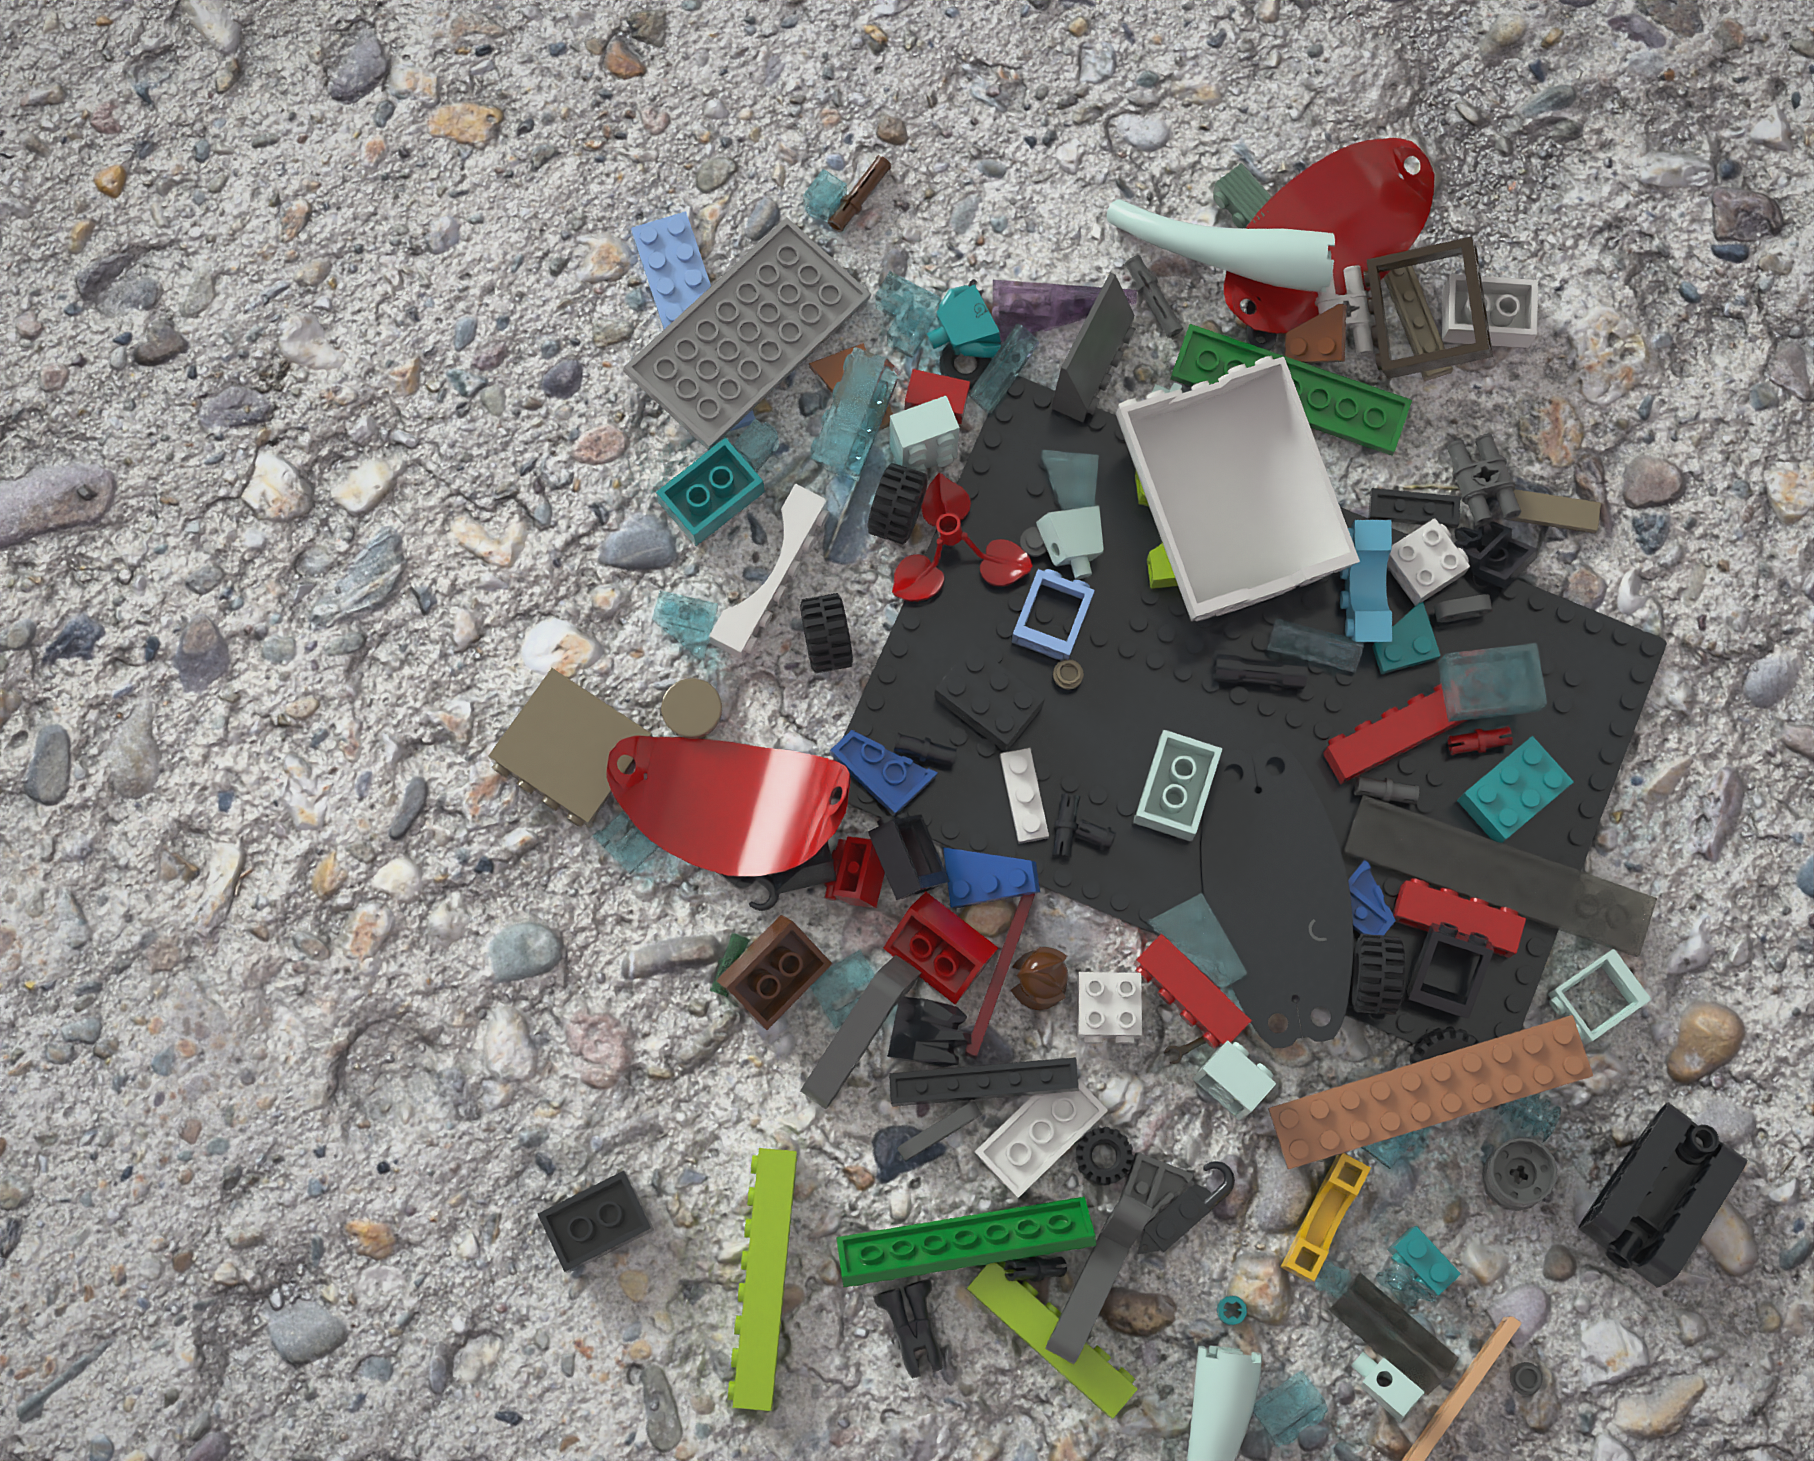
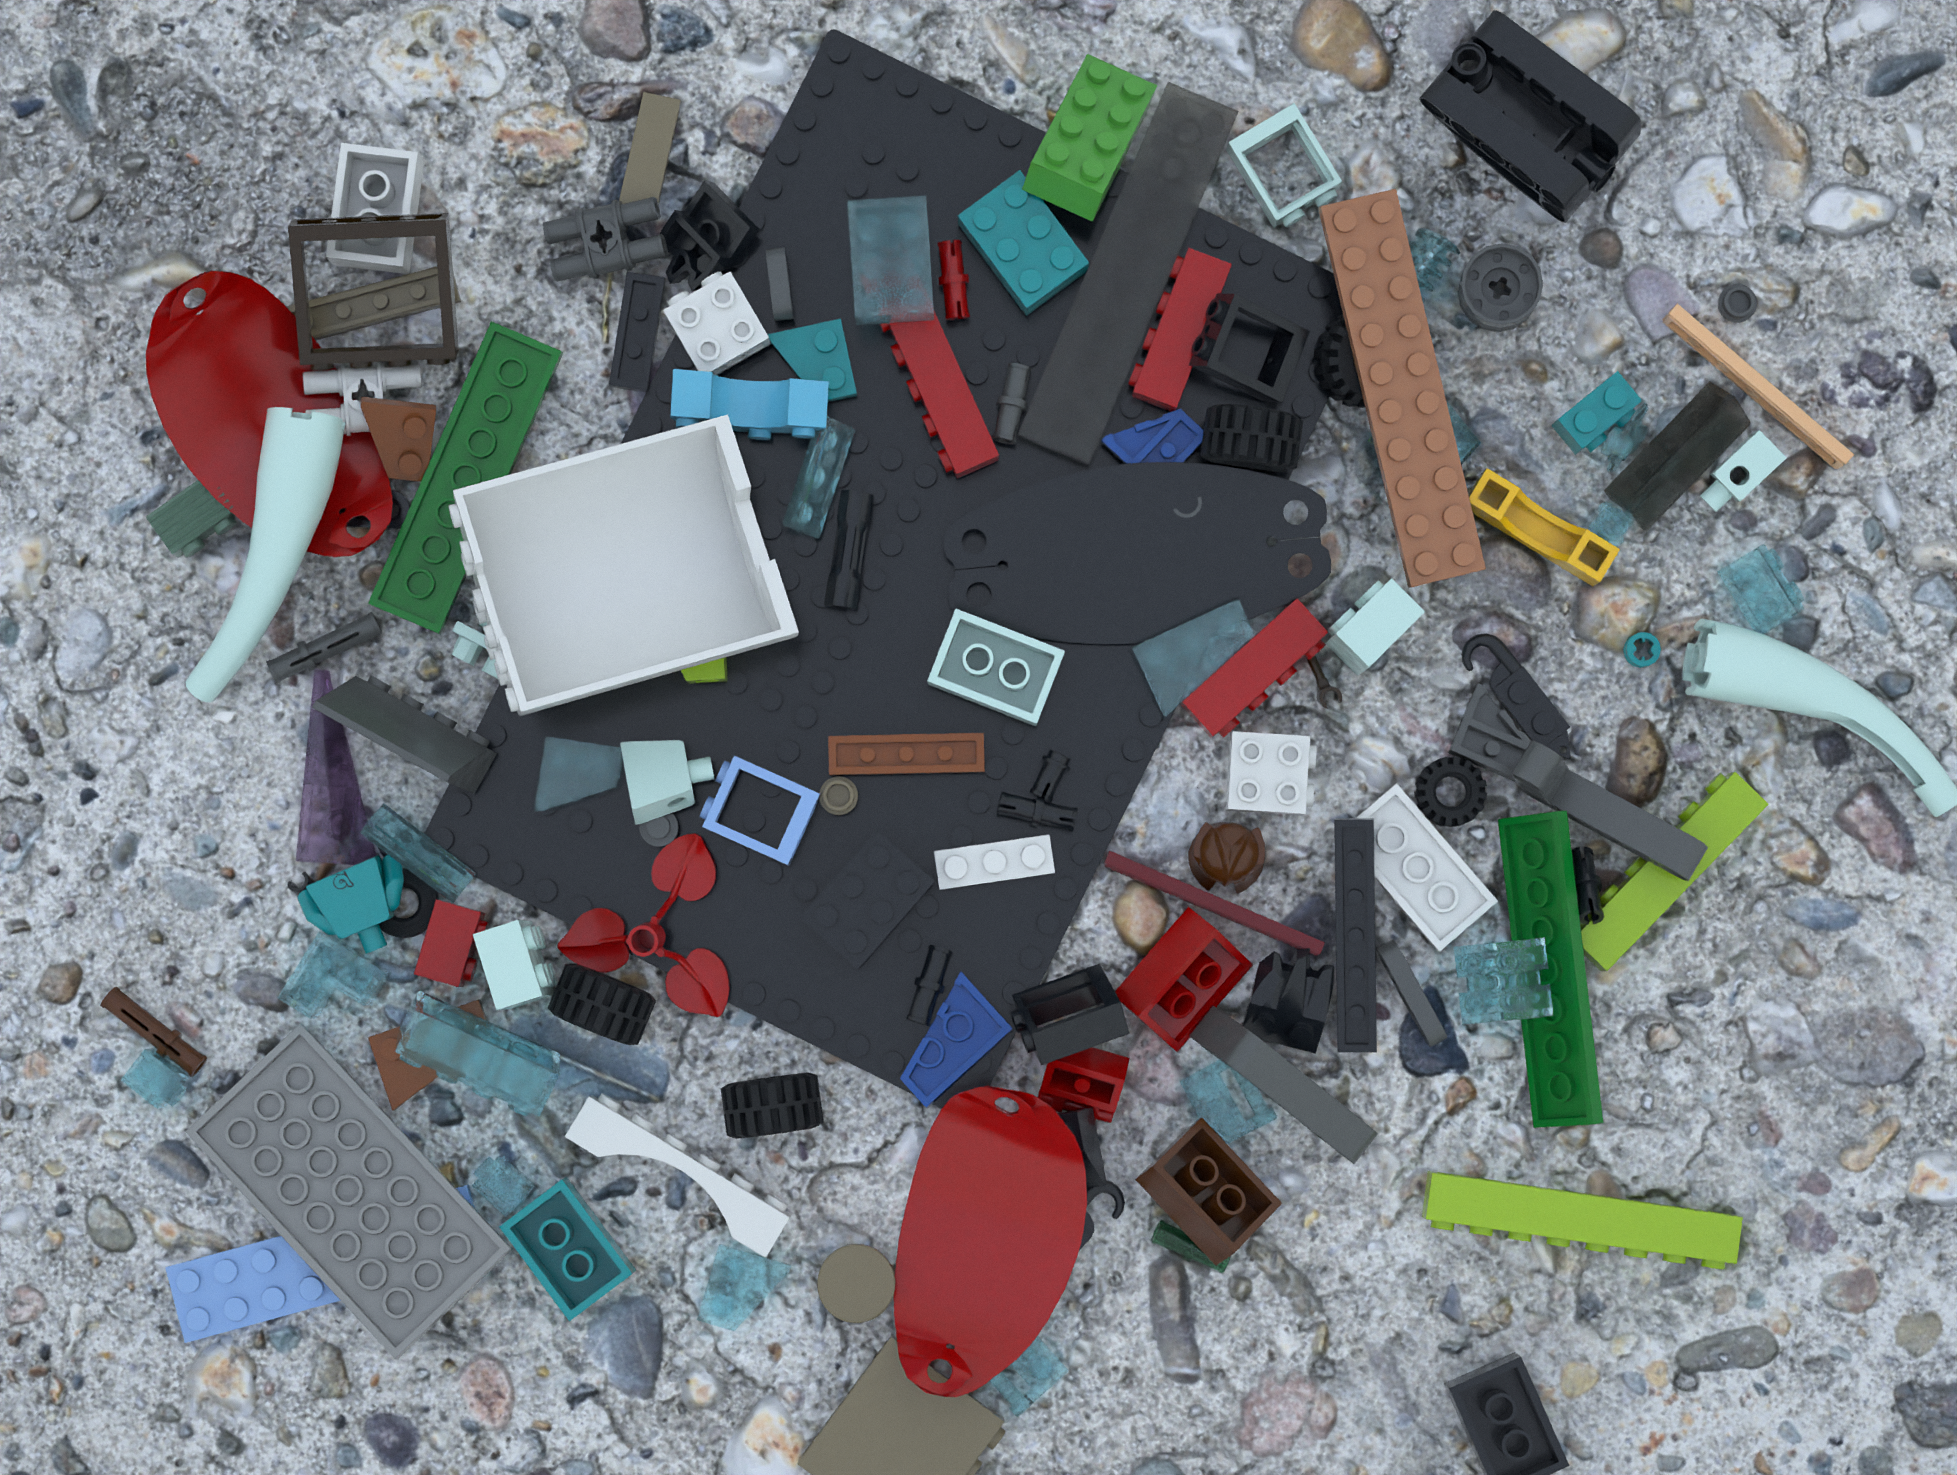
camera: 85 degrees left, 10 degrees up
(916, 1333) = (1653, 1037): black piece -> none
(954, 1202) = (1503, 981): none -> clear light blue brick
(987, 877) = (1099, 915): blue wing -> none
(1104, 723) = (906, 754): none -> dark orange plate
(1605, 835) = (1089, 137): none -> bright green brick

